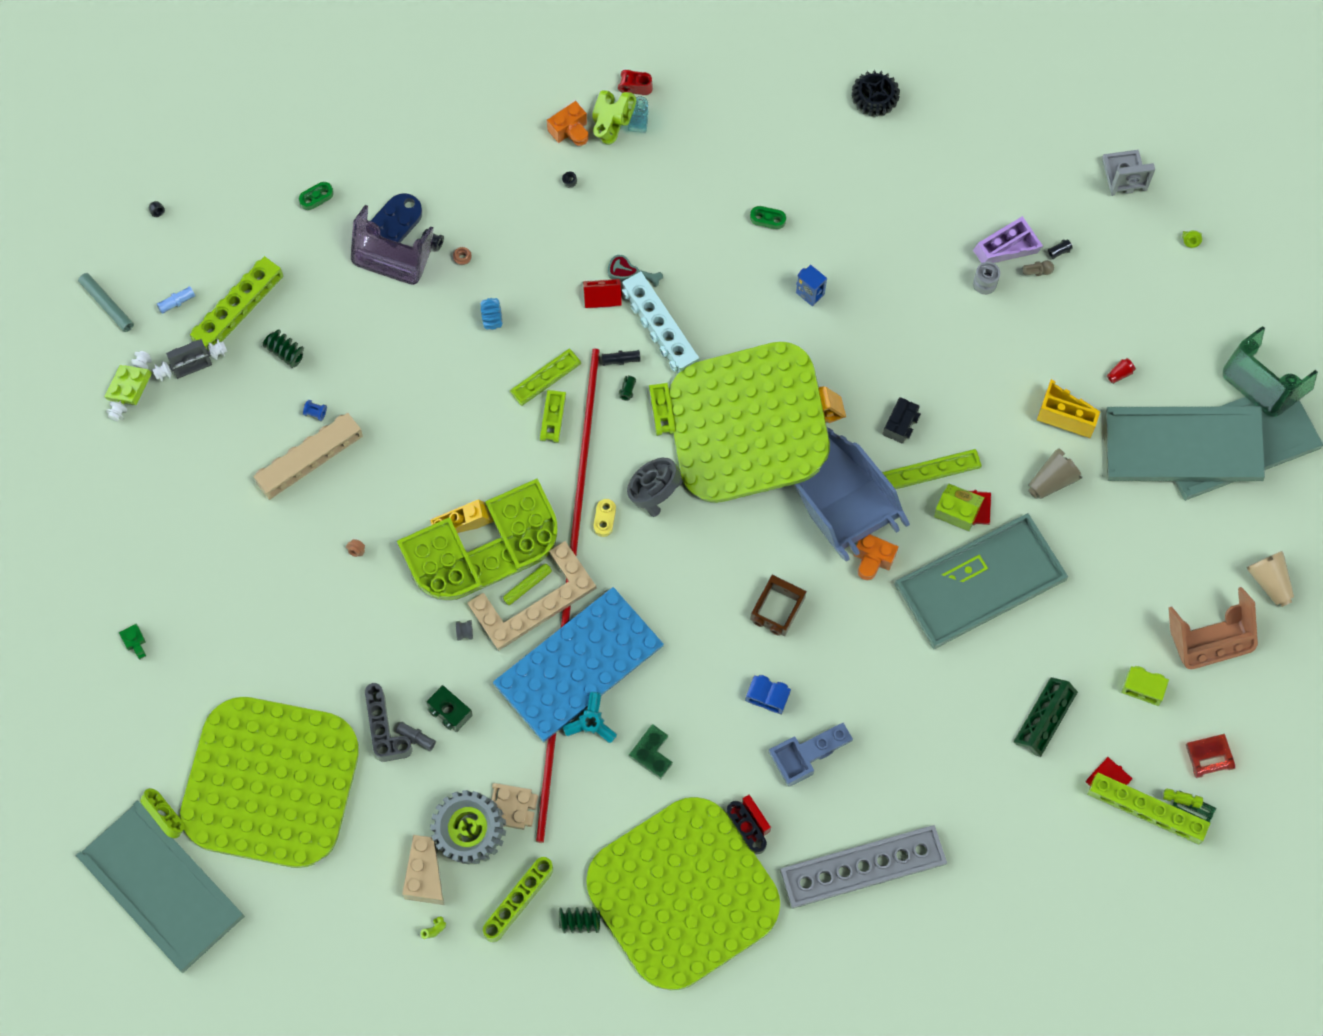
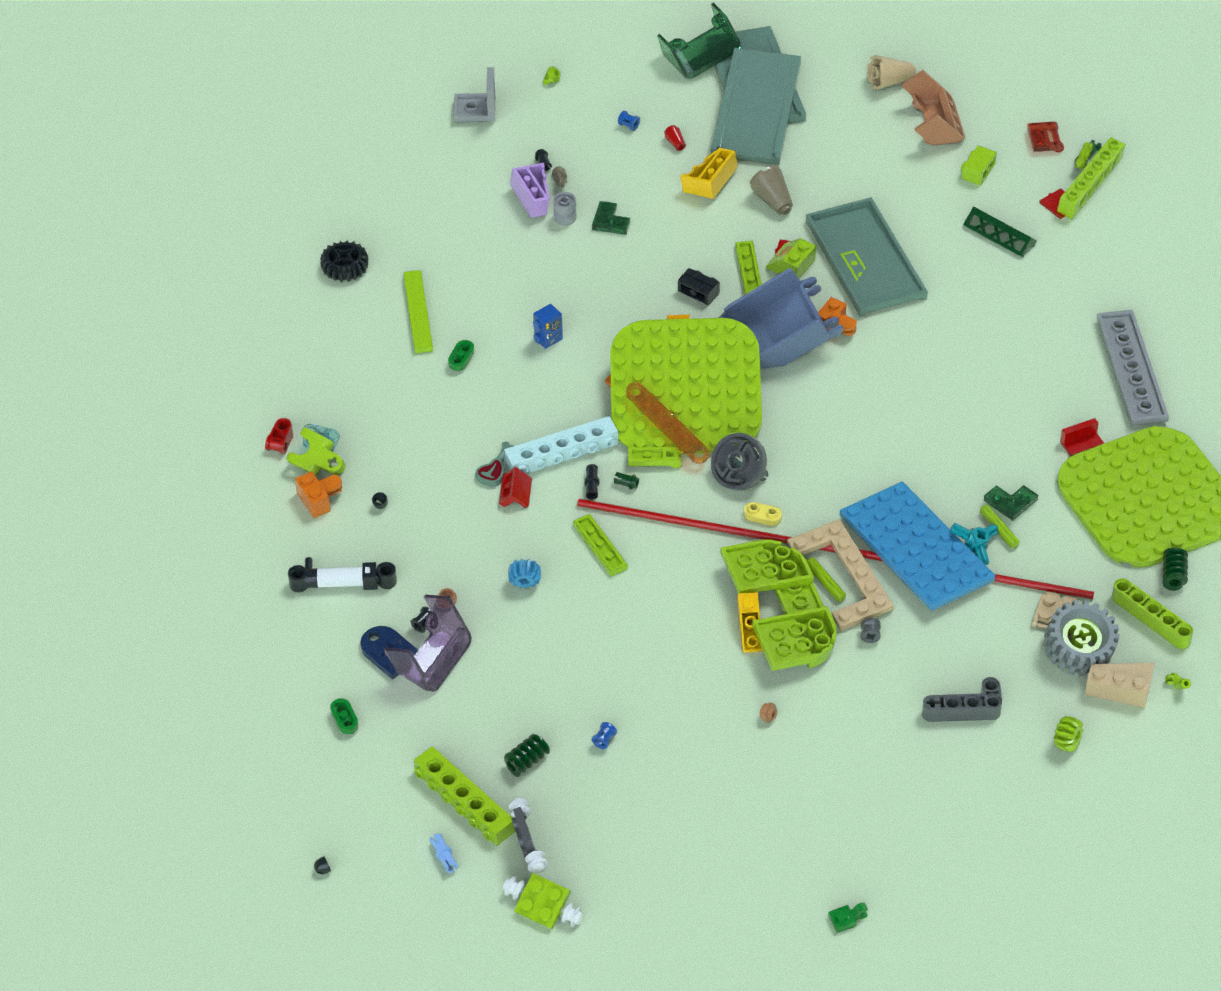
camera: 80 degrees left, 20 degrees down
(106, 302) = (431, 920): sand green piece -> none
(160, 887) = (1122, 909): sand green piece -> none
(170, 824) = (1045, 897): lime beam -> none
(270, 782) = (1015, 808): lime plate -> none
(308, 455) = (657, 745): tan brick -> none
(350, 822) = (1068, 733): none -> lime gear
(416, 736) = (977, 678): dark grey pin -> none
(444, 698) = (953, 649): dark green brick -> none
(473, 163) = (367, 576): none -> black piece
(553, 415) = (646, 540): lime plate -> none
(618, 743) = (1004, 531): none -> lime axle
(696, 411) = (667, 423): none -> clear orange plate
(759, 836) = (1106, 434): black beam -> none
(768, 694) = (961, 411): blue brick -> none
(786, 589) = (870, 377): reddish brown window -> none
(795, 759) = (1024, 397): sand blue plate -> none
(823, 170) = (418, 311): none -> lime tile
(986, 320) = (607, 221): none -> clear green plate
(1137, 322) = (628, 120): none -> blue bush

